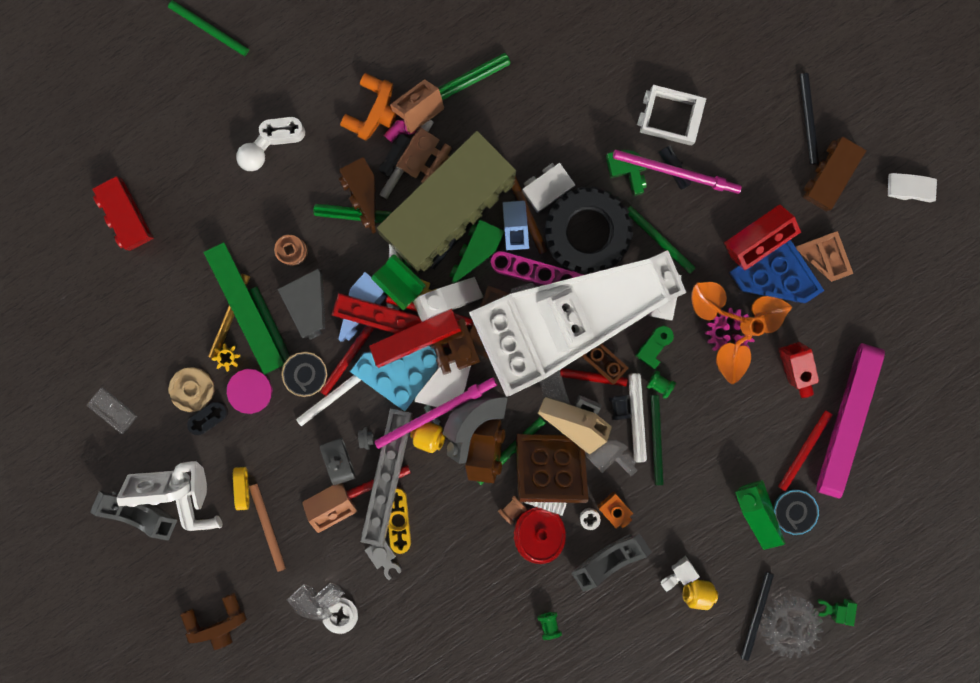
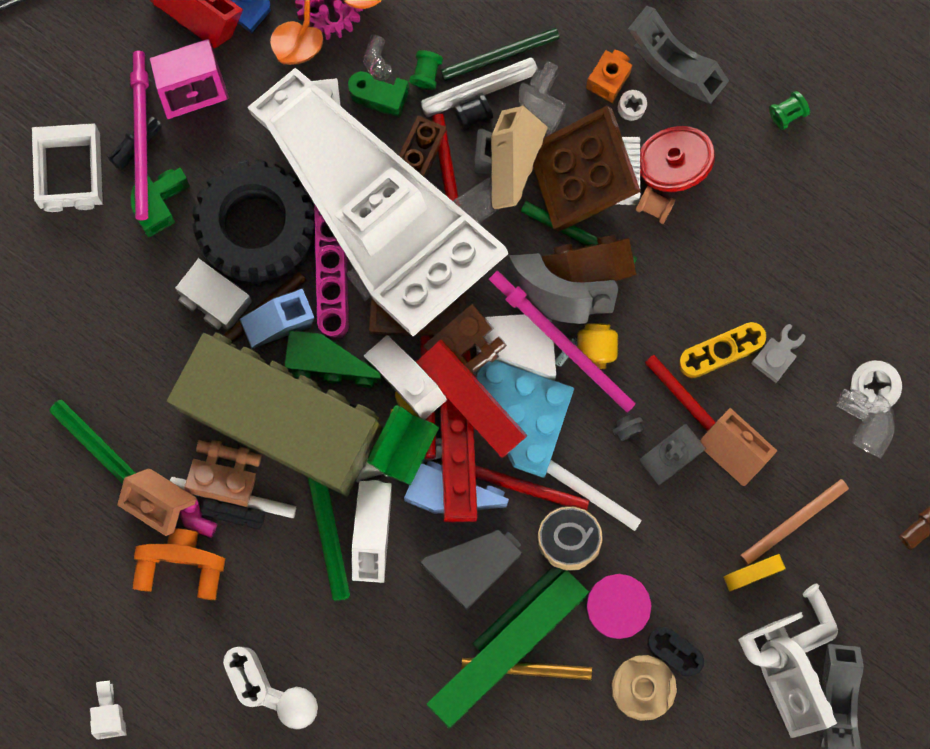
camera: 105 degrees left, 10 degrees down
(224, 351) = (576, 646): yellow gear -> none
(284, 31) = (108, 718): none -> white piece
(291, 250) = (407, 608): nougat wheel -> none
(352, 243) = (371, 531): none -> white slope
(361, 184) = (290, 540): reddish brown slope -> none
(385, 482) = (676, 381): light grey tile -> none
(662, 241) = (237, 129): green bar -> none
(681, 350) = (373, 60): none -> clear arm
(706, 217) = (188, 79): none -> dark pink slope

